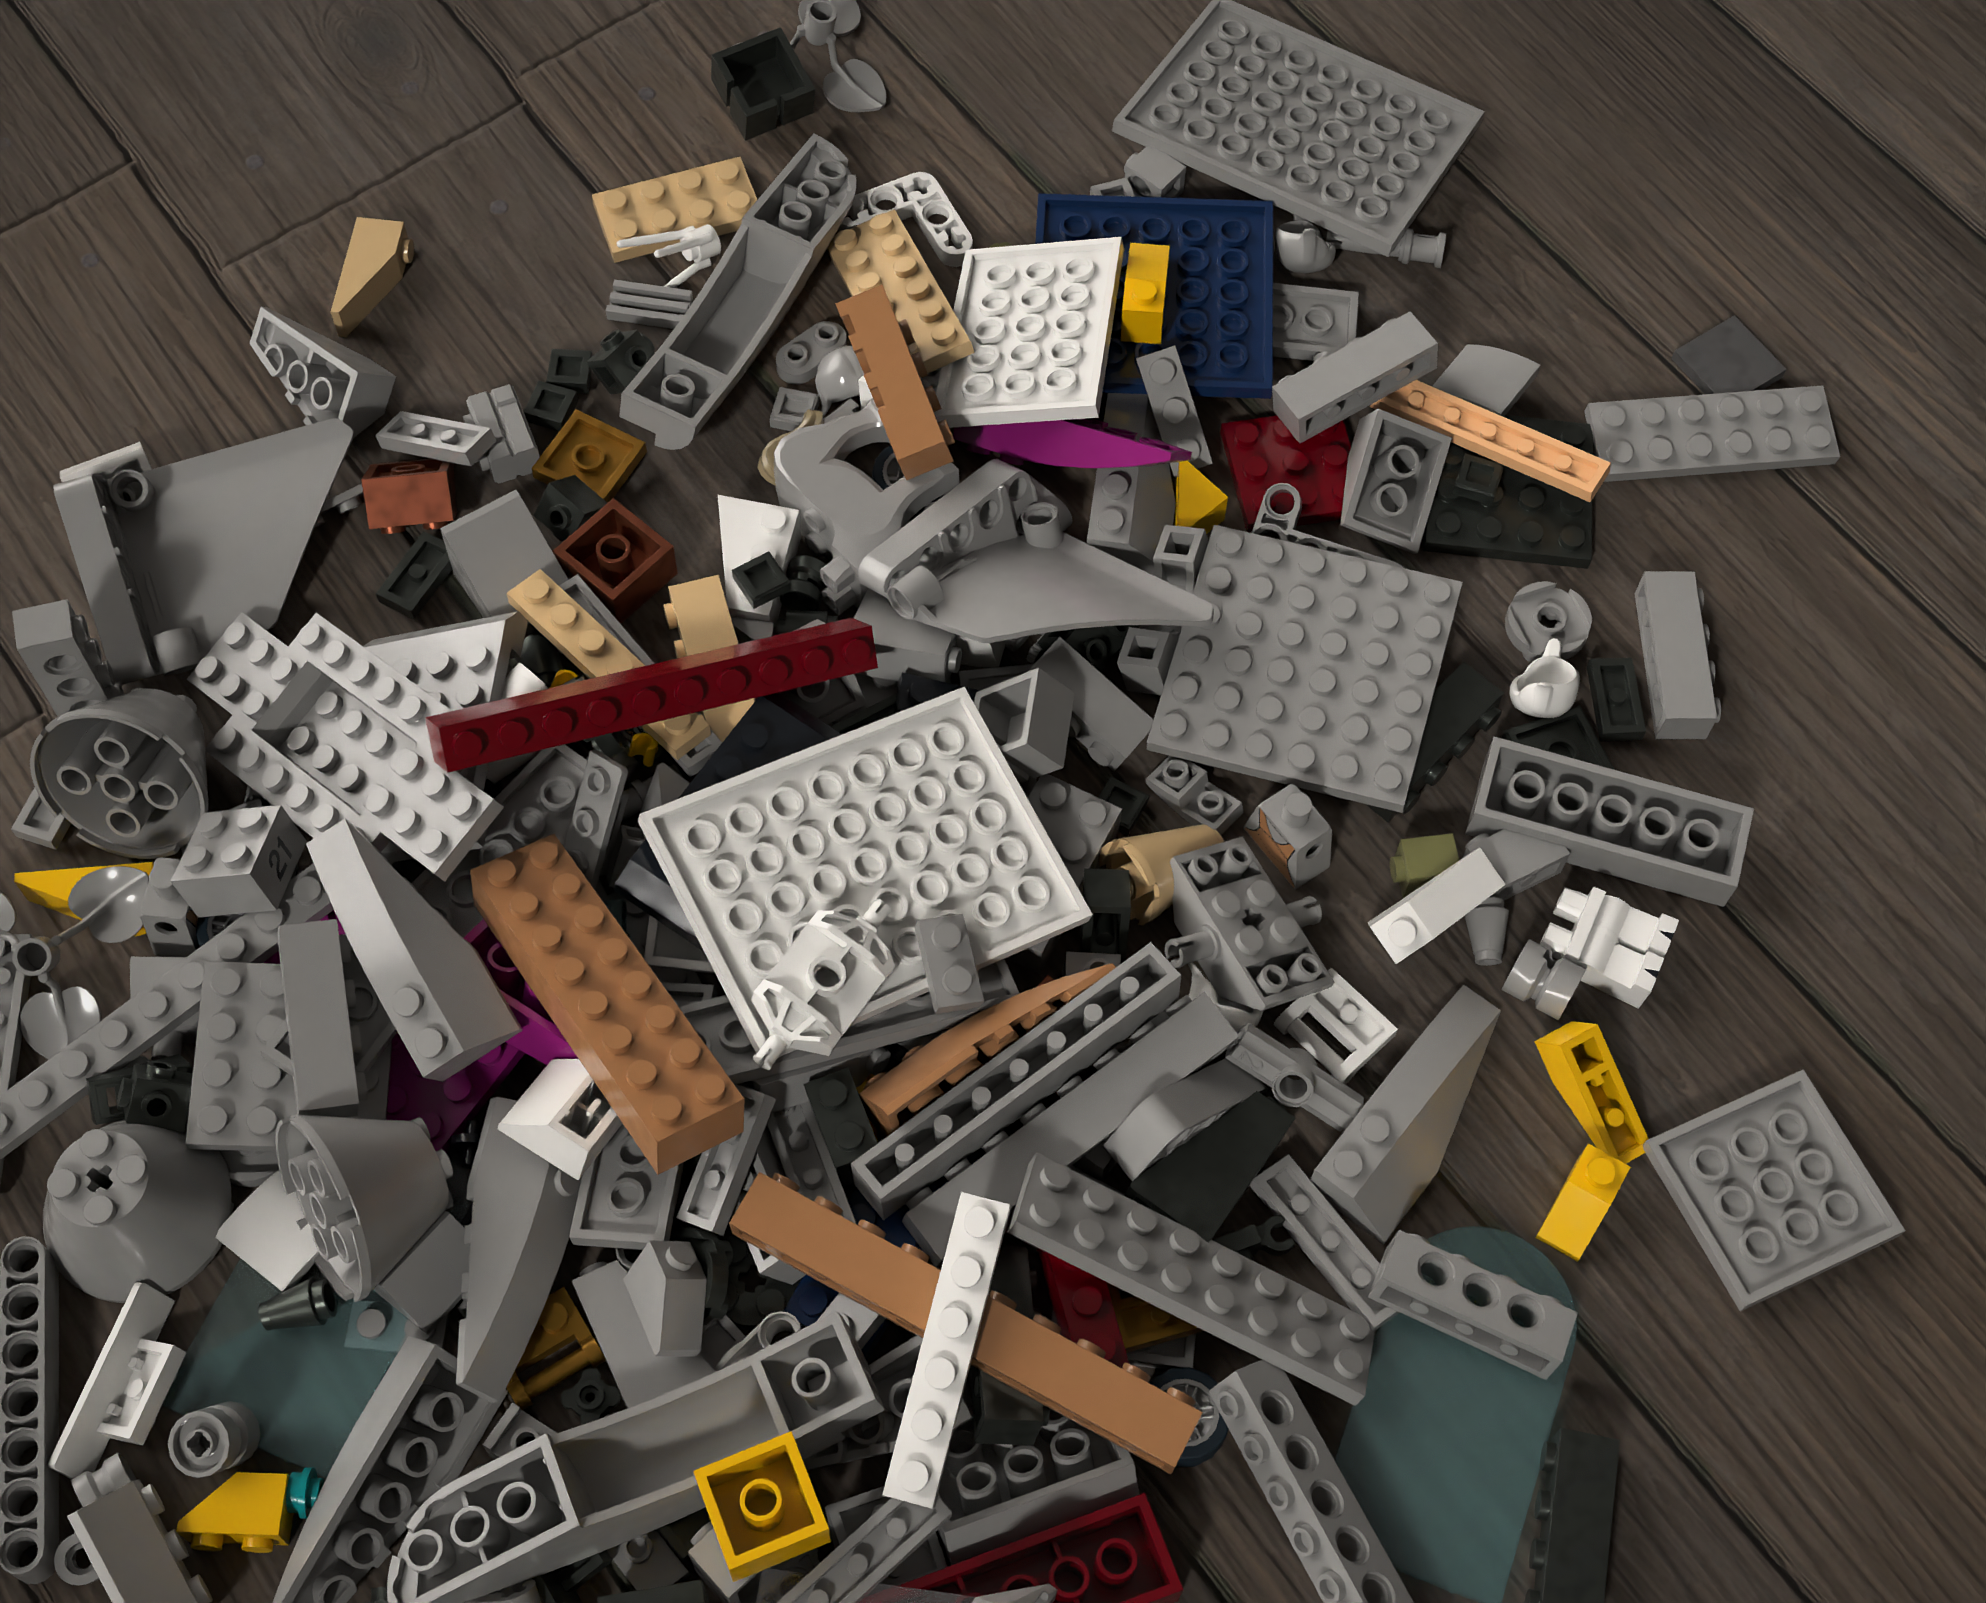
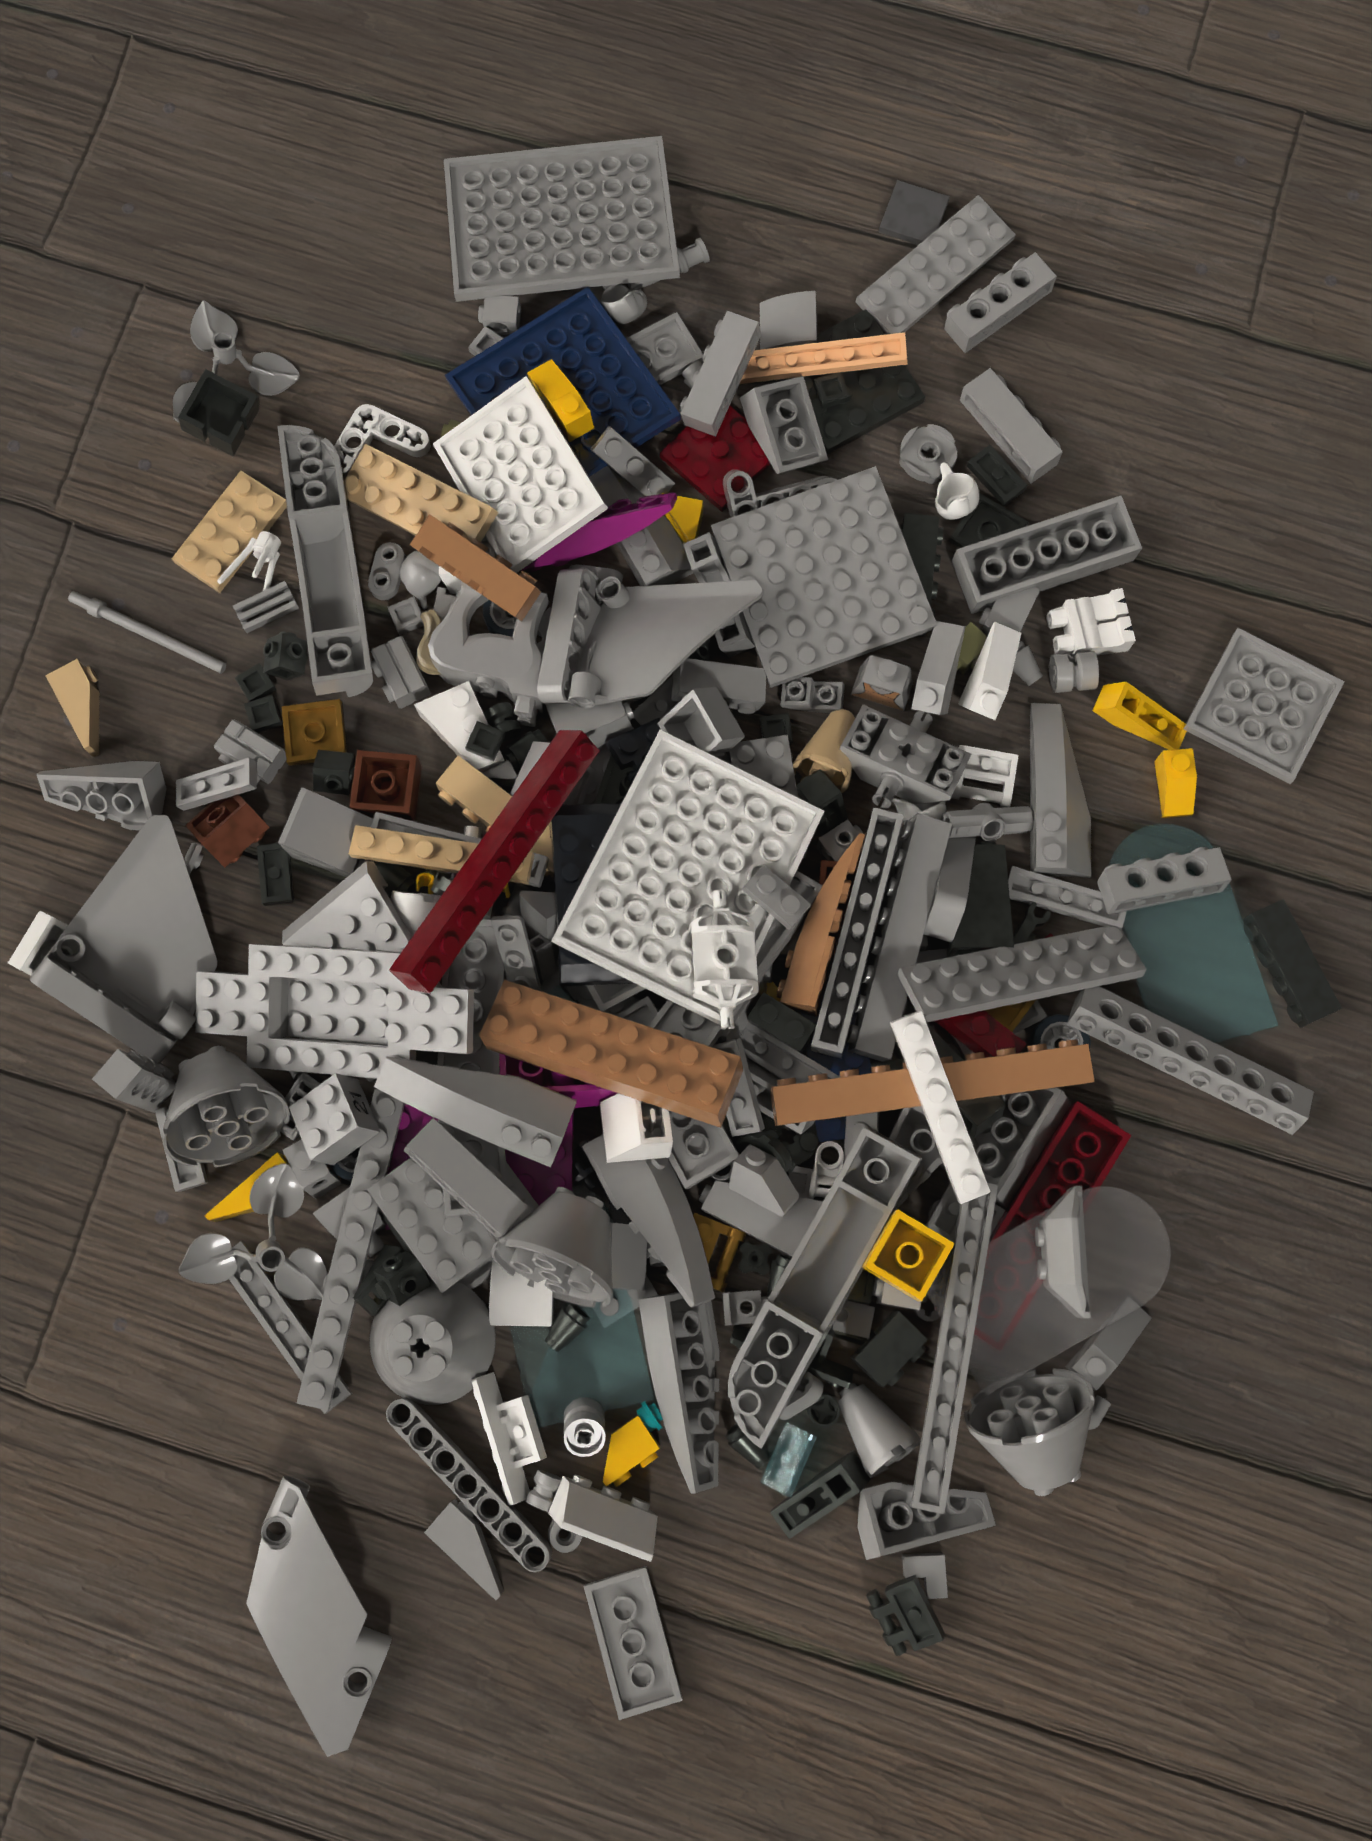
camera: 30 degrees left, 15 degrees up
(474, 198) = (99, 609): none -> light grey bar
(733, 457) = (400, 672): none -> light grey brick
(1367, 861) = (939, 669): none -> light grey slope
(1764, 514) = (970, 331): none -> light grey brick

